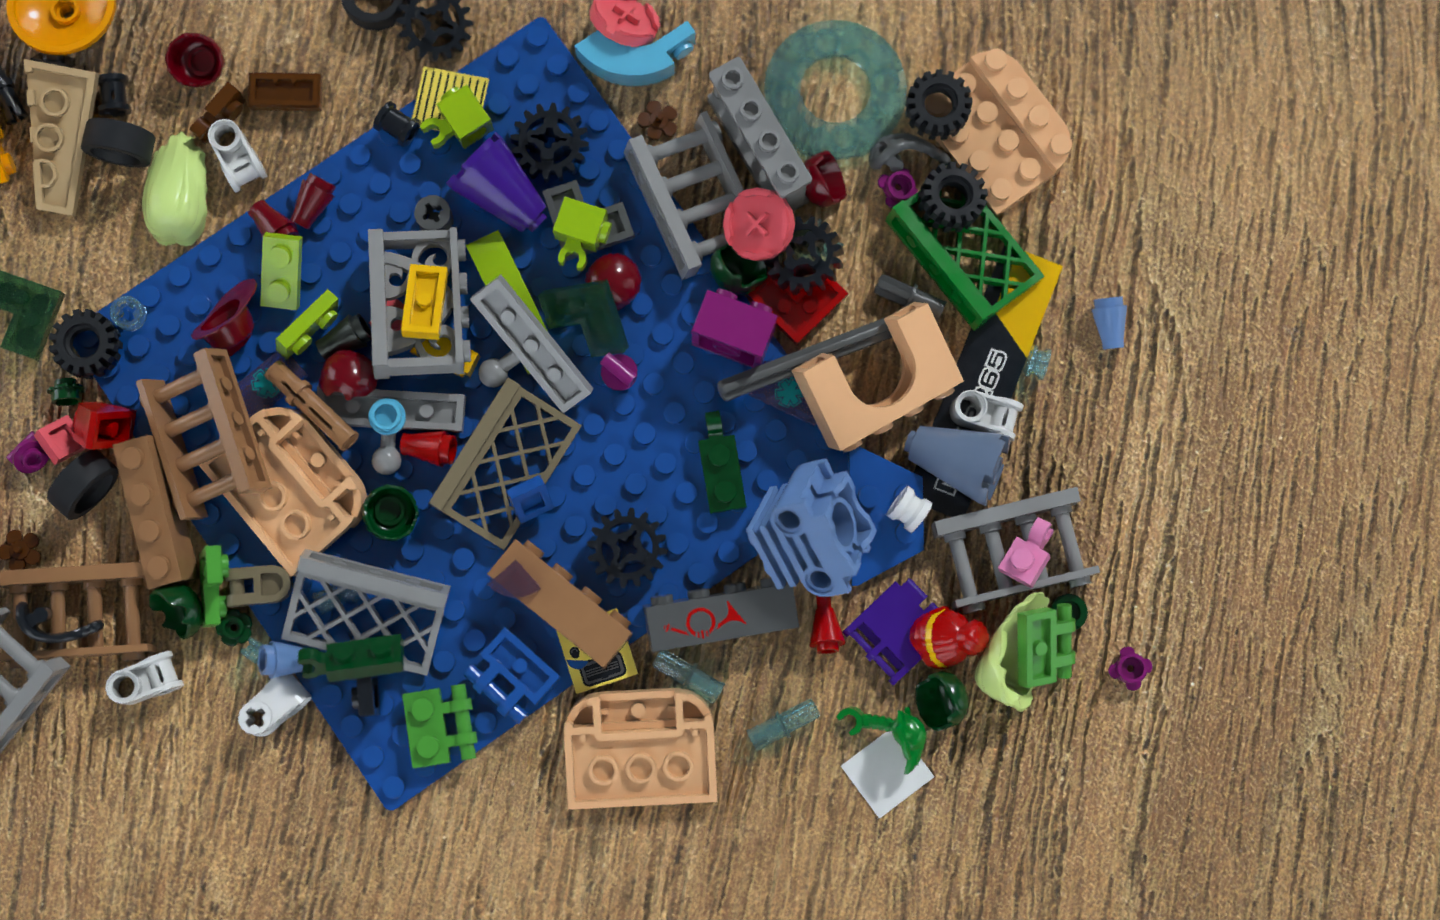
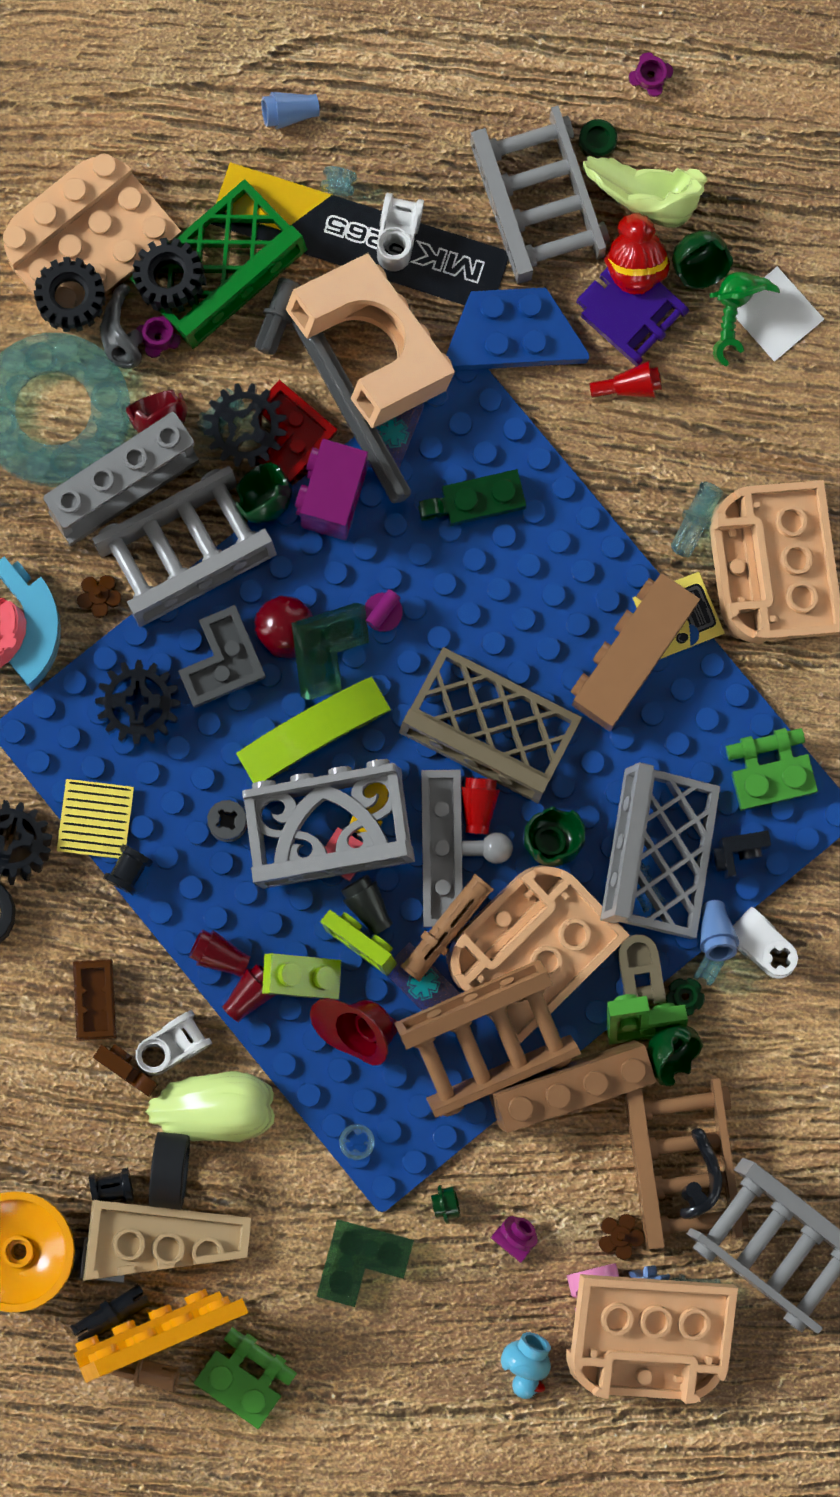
camera: 95 degrees left, 0 degrees up
(58, 440) = (499, 1201): coral plate -> none
(70, 328) = (371, 1175): black tyre -> none
(82, 484) = (548, 1167): black tyre -> none
(102, 425) = (483, 1155): red slope -> none
(151, 679) = (747, 1080): white piece -> none
(194, 60) = (67, 1099): dark red hair -> none
(349, 374) = (410, 893): dark red hair -> none
(354, 658) = (712, 854): dark green plate -> none
(387, 416) = (453, 846): medium azure plate -> none
(424, 302) = (331, 811): yellow plate -> none
(461, 116) = (117, 798): lime brick -> none
(499, 185) = (190, 752): dark purple cone -> none
(514, 582) = (619, 695): clear purple tile -> none
(520, 667) = (703, 690): blue plate -> none
(529, 345) = (364, 704): light grey plate -> none
(530, 499) = (528, 690): blue plate -> none
(580, 227) = (234, 657): lime brick -> none
(612, 540) = (555, 579): black gear -> none
(719, 615) = (632, 488): dark grey brick -> none
(758, 224) = (218, 471): coral tile -> none
(783, 724) = (738, 420): clear light blue axle -> none
(812, 530) = (542, 393): medium blue piece -> none
(909, 509) = (509, 299): white wheel -> none
(960, 458) = (449, 253): sand blue cone -> none
(1027, 558) = (550, 179): bright pink plate -> none
(1045, 645) = (637, 157): bright green plate -> none

